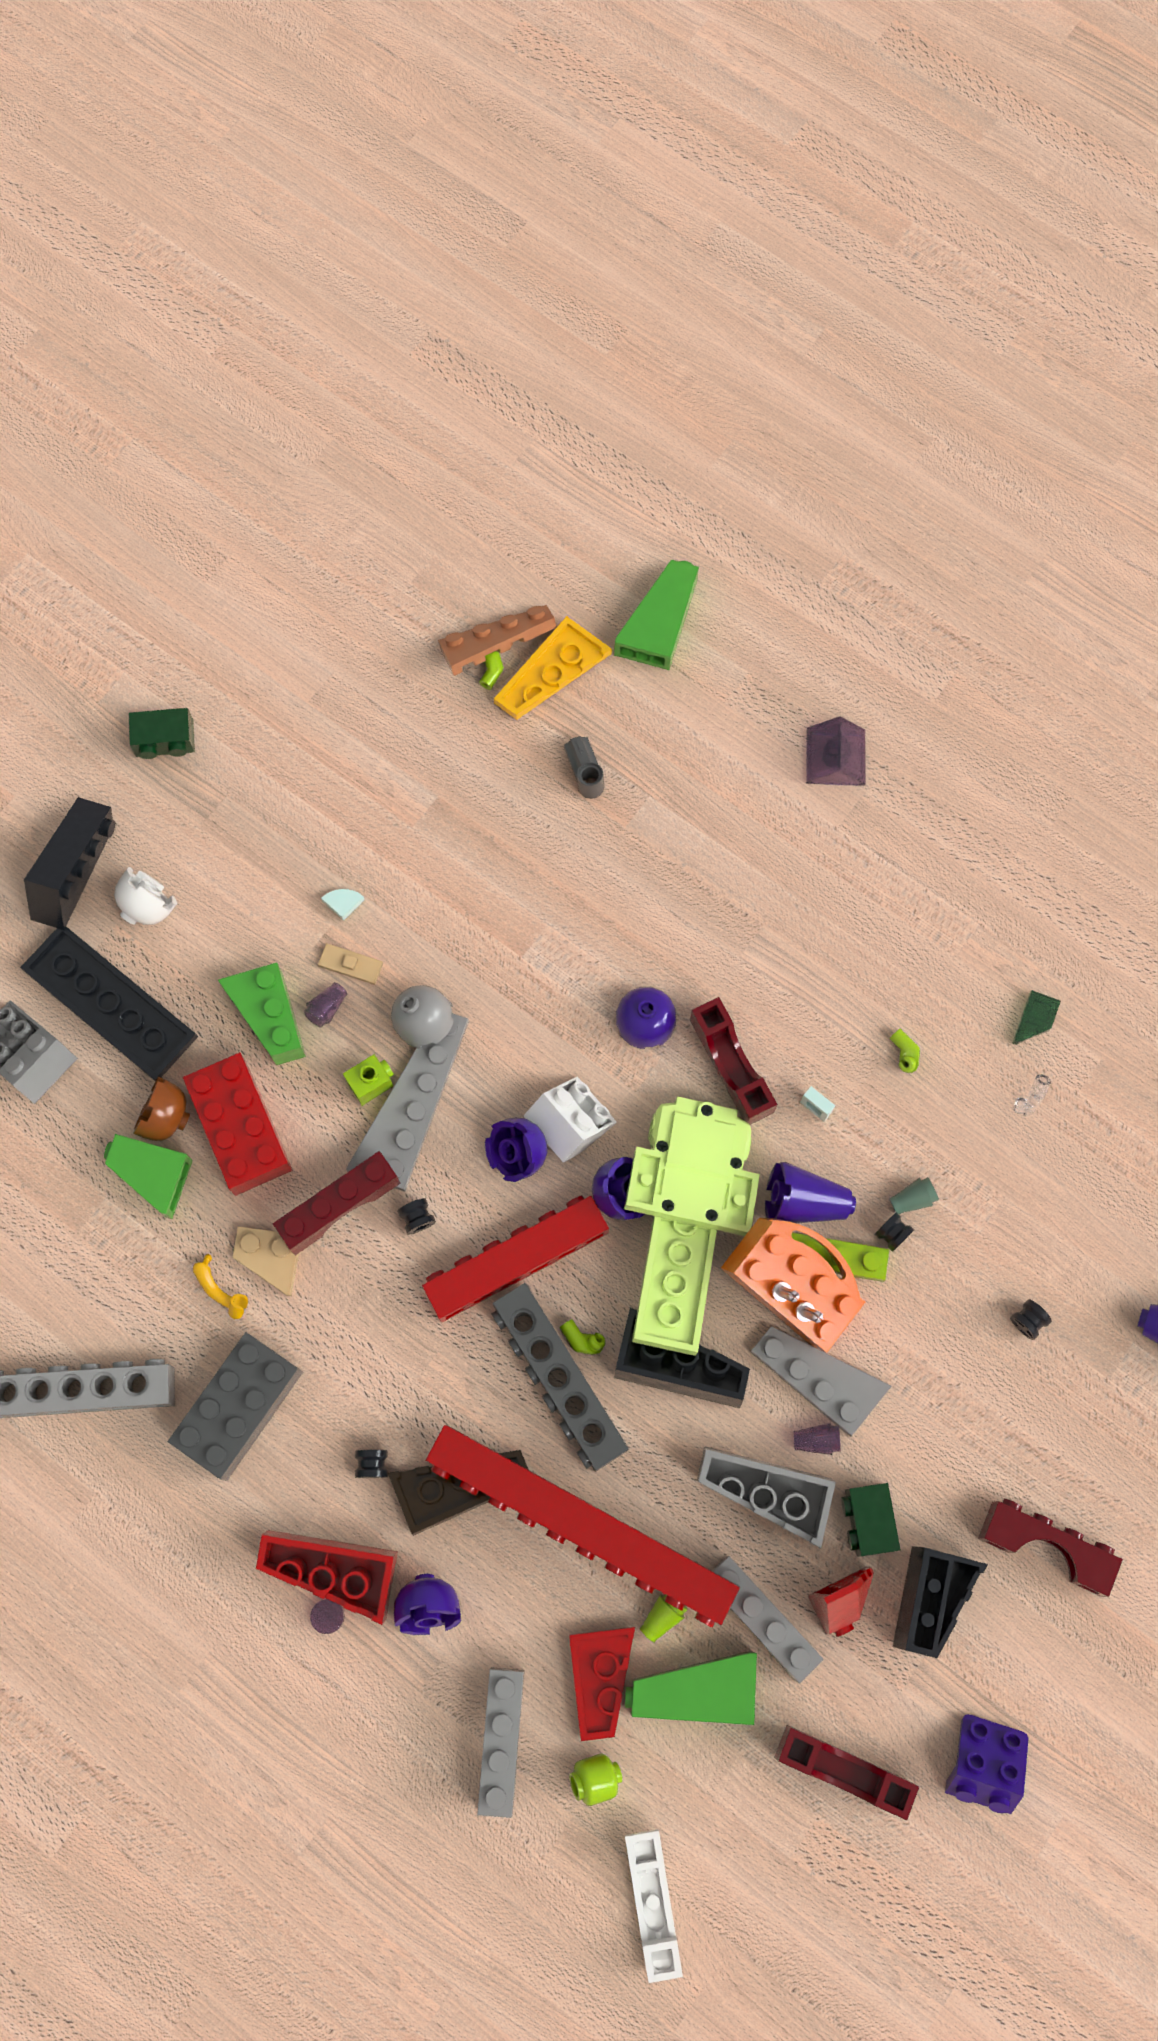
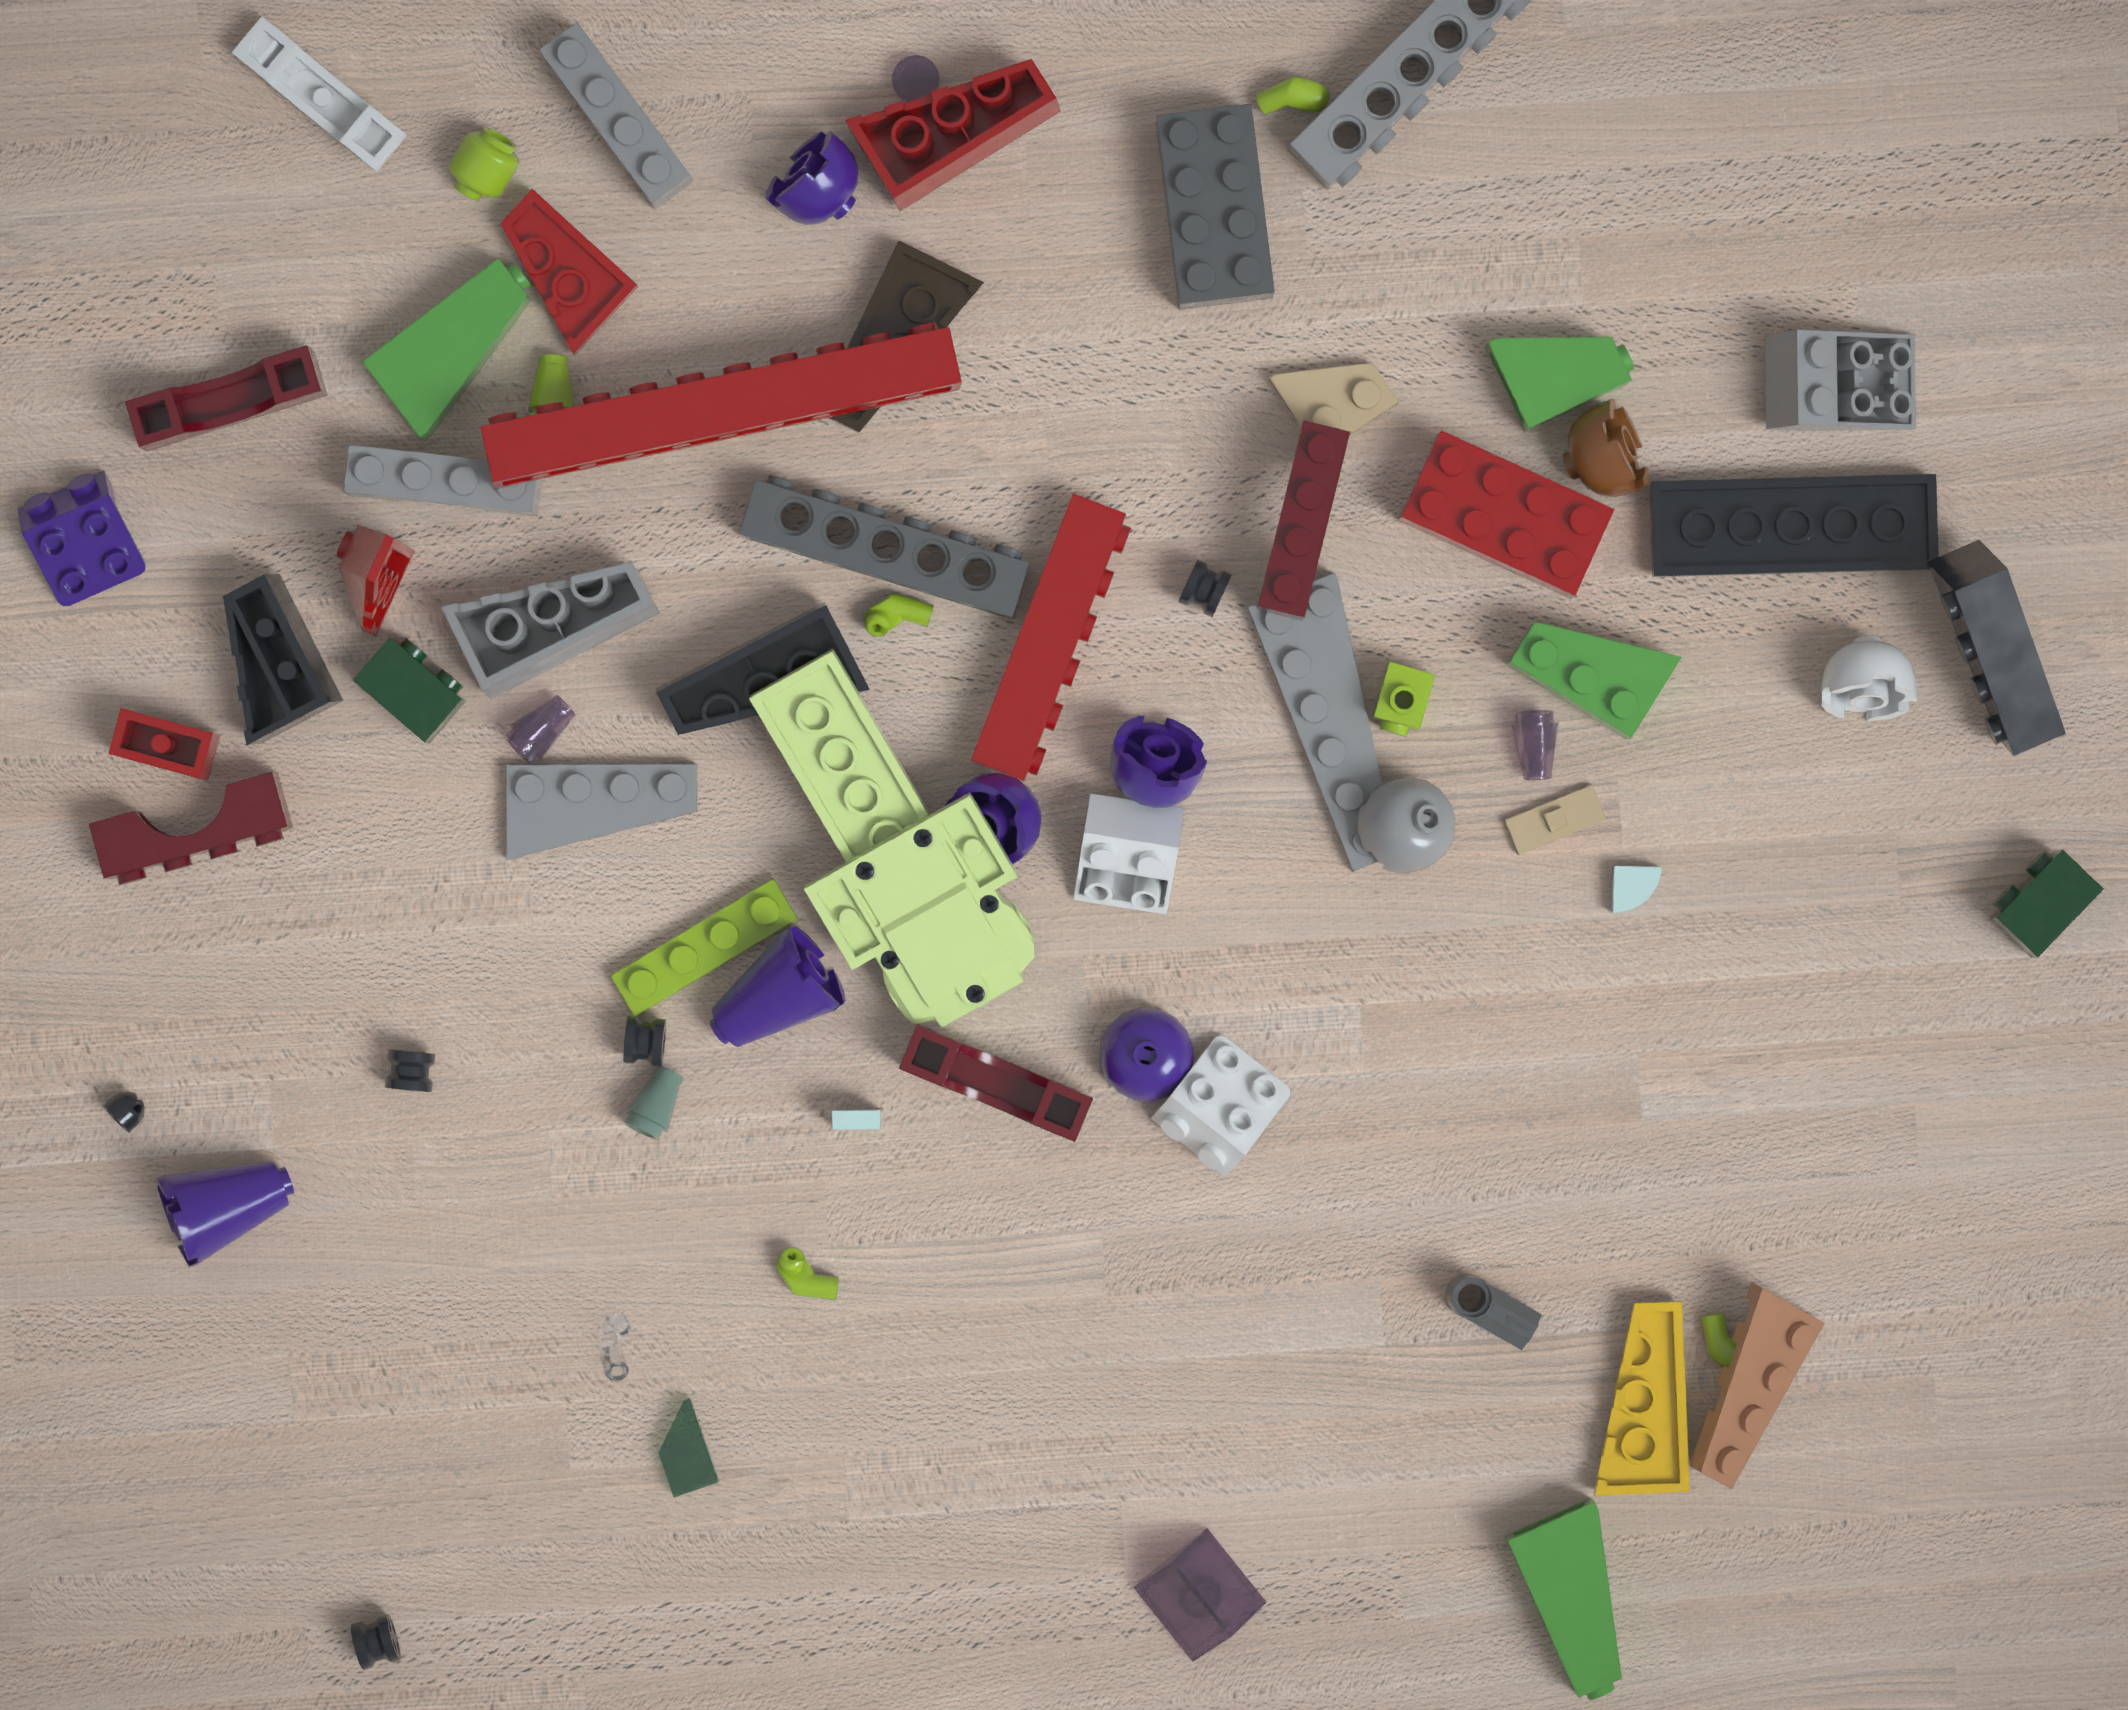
camera: 135 degrees right, 15 degrees up
(142, 1430) = (1296, 93): none -> lime arm
(235, 1303) = (1386, 315): yellow piece -> none
(371, 1464) = (1010, 275): black wheel -> none
(630, 961) = (1222, 1105): none -> white bracket
(796, 1280) = (709, 880): piece -> none
(1032, 1605) = (164, 744): none -> red brick

